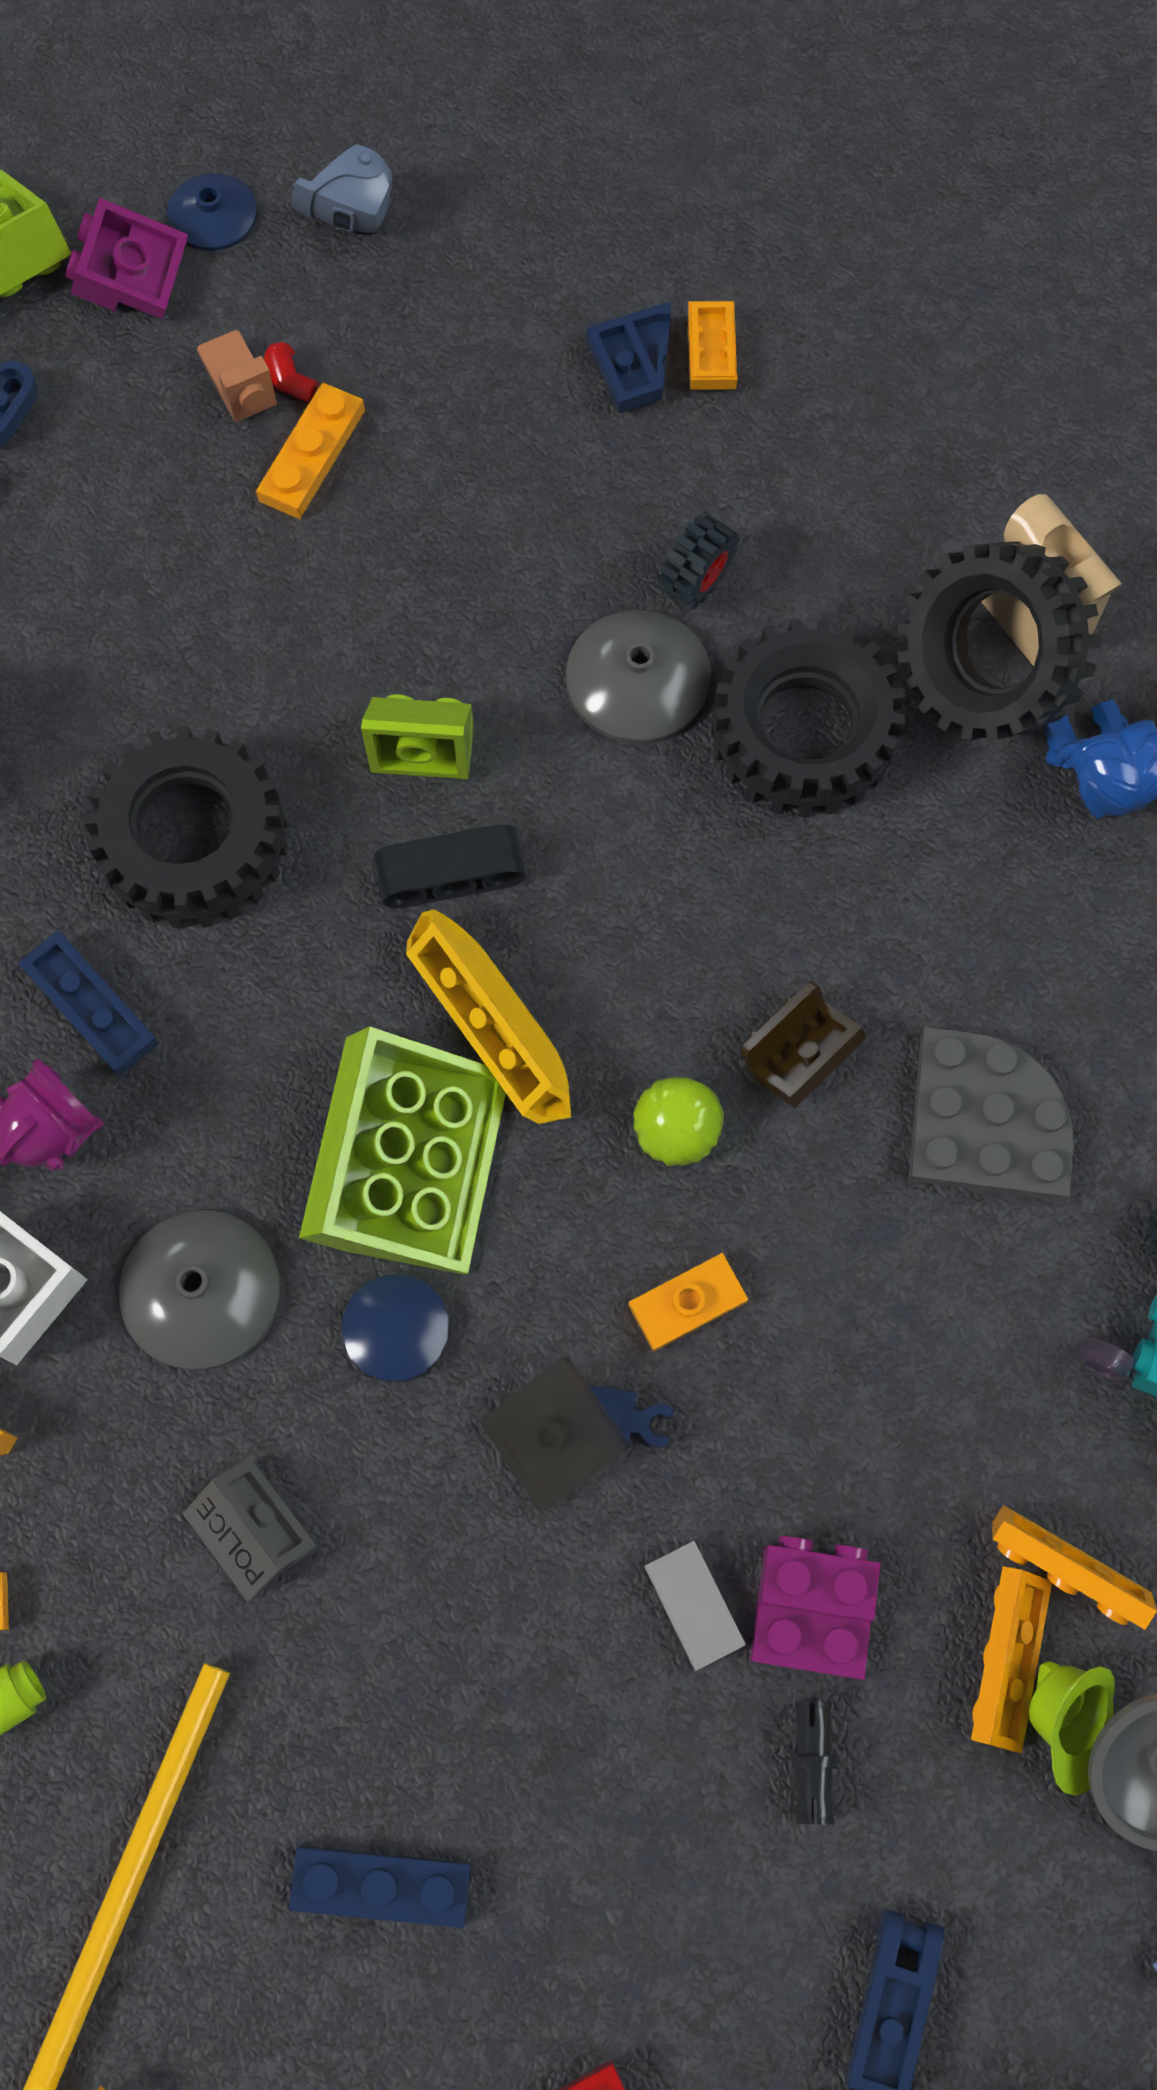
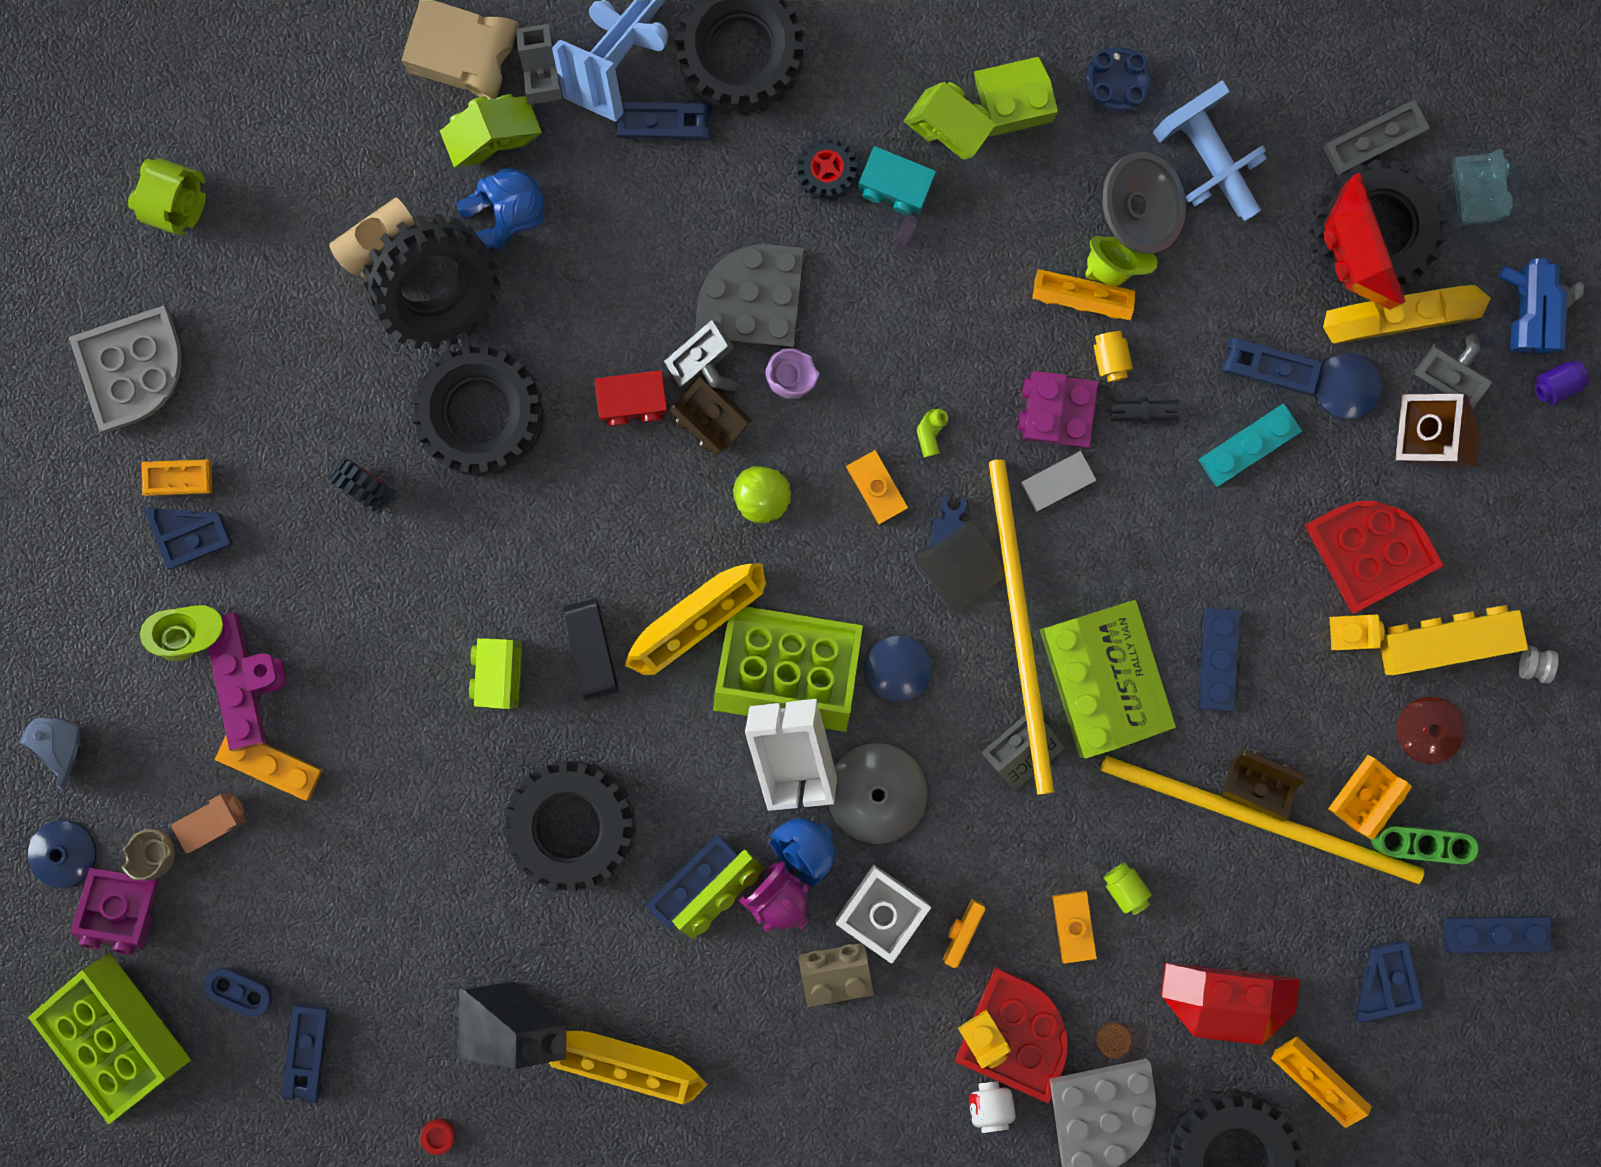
camera: 90 degrees left, 15 degrees up
(63, 1039) = (719, 894): none -> lime plate
(120, 1169) = (804, 847): none -> blue cylinder
(154, 1959) = (1262, 784): none -> dark brown bracket
(196, 301) = (149, 855): none -> dark tan hair
(269, 1134) = (790, 748): none -> white piece
(284, 375) = (206, 789): red arm -> none
(356, 1681) = (1107, 679): none -> lime slope
(429, 411) = (238, 683): none -> magenta plate
(446, 1528) = (1021, 627): none -> yellow piece
(498, 336) = (181, 631): none -> lime piece
(633, 699) = (465, 530): dark grey dish -> none
(755, 1961) = (1250, 445): none -> teal plate
(781, 1389) = (928, 430): none -> lime arm
(829, 932) = (631, 397): none -> red brick
(864, 292) = (129, 367): none -> light grey plate
(869, 1169) = (791, 373): none -> lavender hair
(894, 1031) = (699, 357): none -> plate
(907, 1707) = (1112, 356): none -> yellow brick
(1072, 1569) = (1030, 257): light orange plate -> none
(1102, 332) = (168, 196): none -> lime brick

